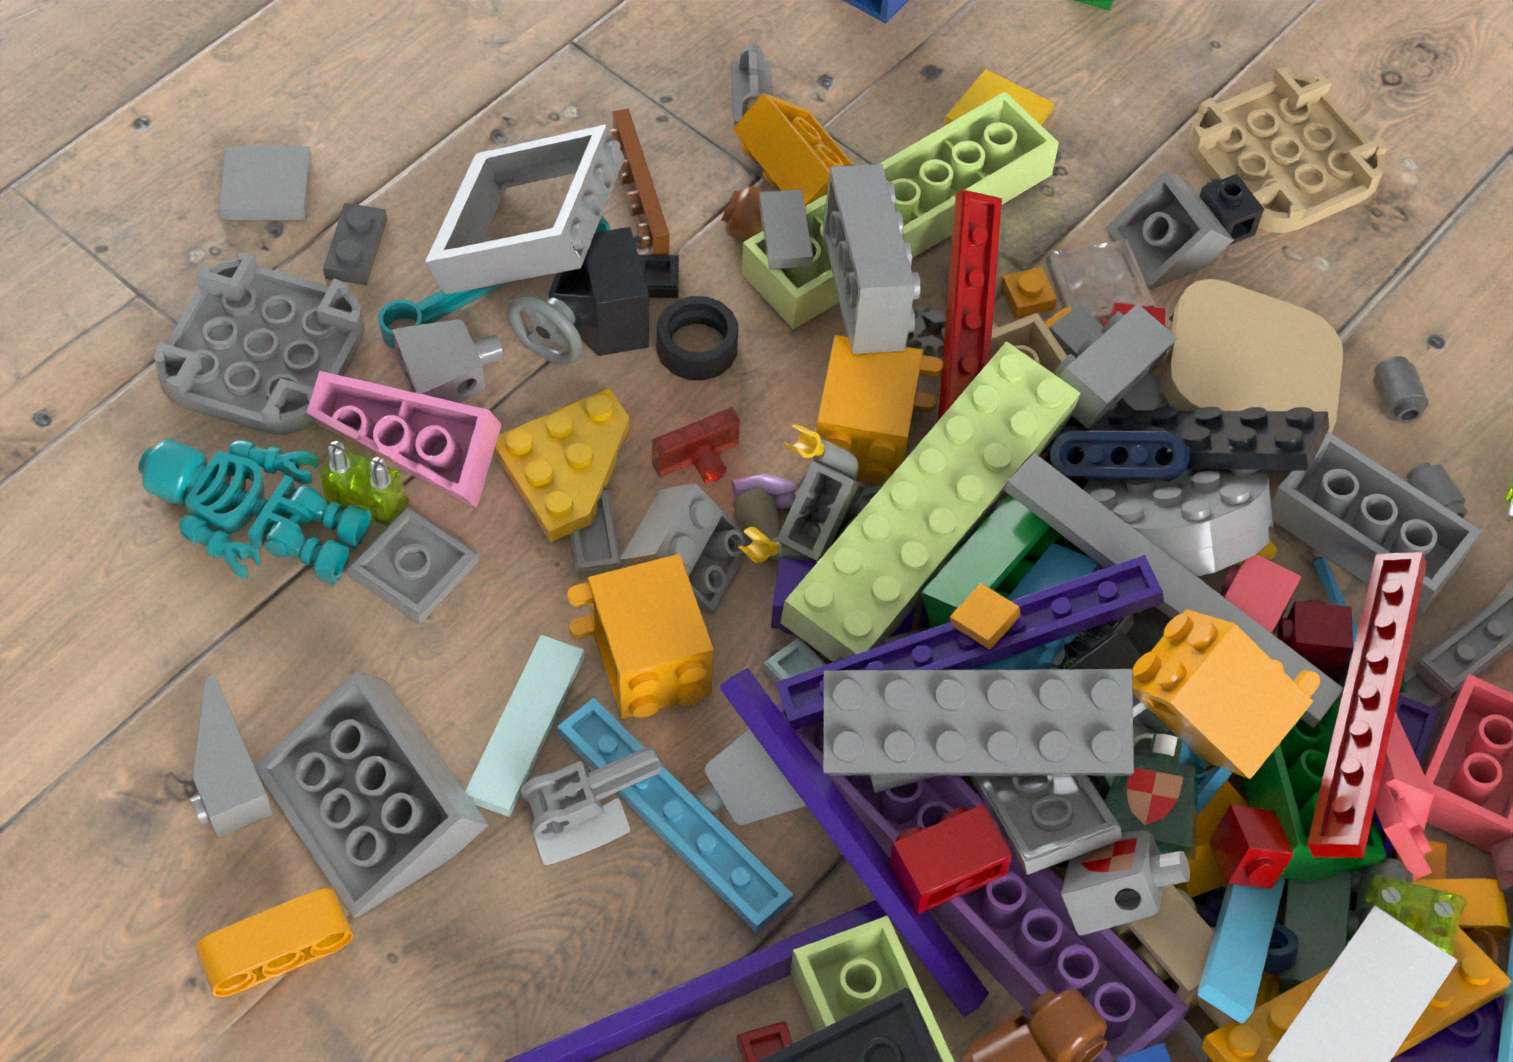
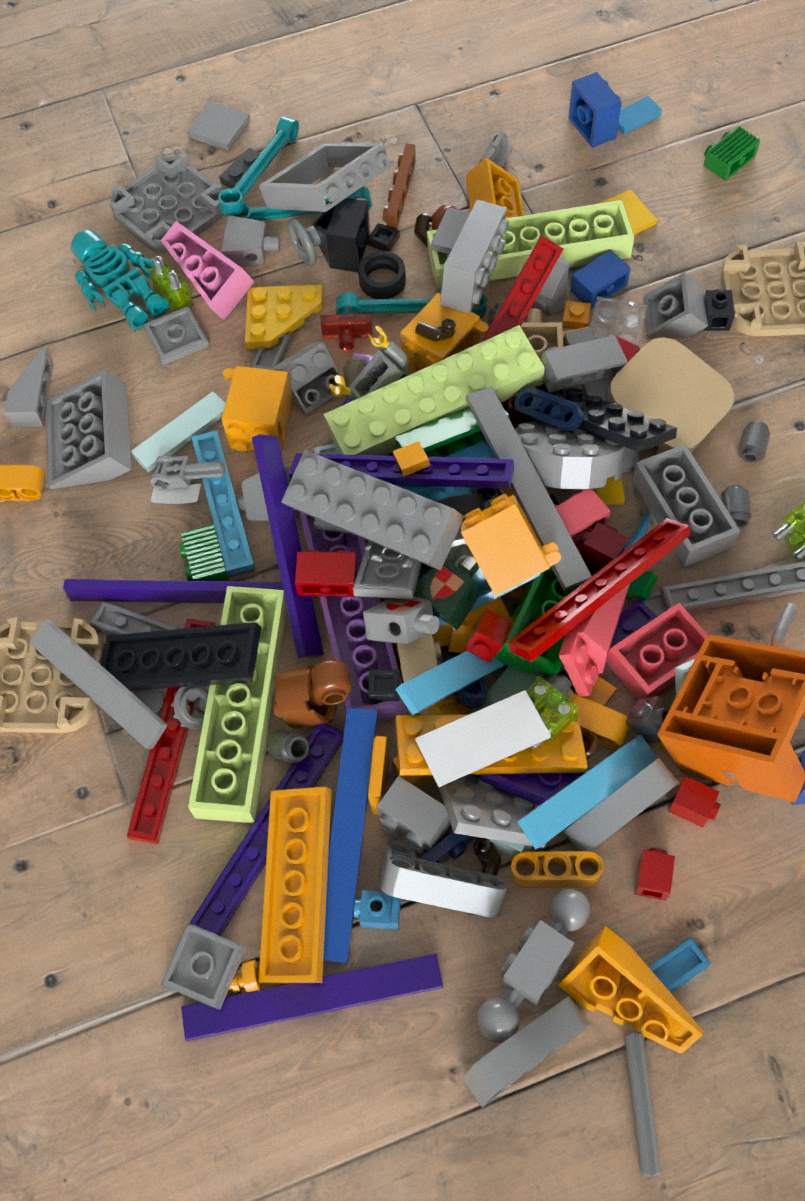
camera: 35 degrees right, 5 degrees up
(384, 285) = (286, 132): none -> teal piece
(683, 406) = (389, 306): none -> teal piece
(703, 918) = (203, 555): none -> green brick
(711, 241) = (421, 227): none -> dark brown arm
(881, 400) = (438, 333): none -> dark brown arm
(1033, 222) = (600, 278): none -> blue brick
(1142, 997) = (383, 684): none -> black tile

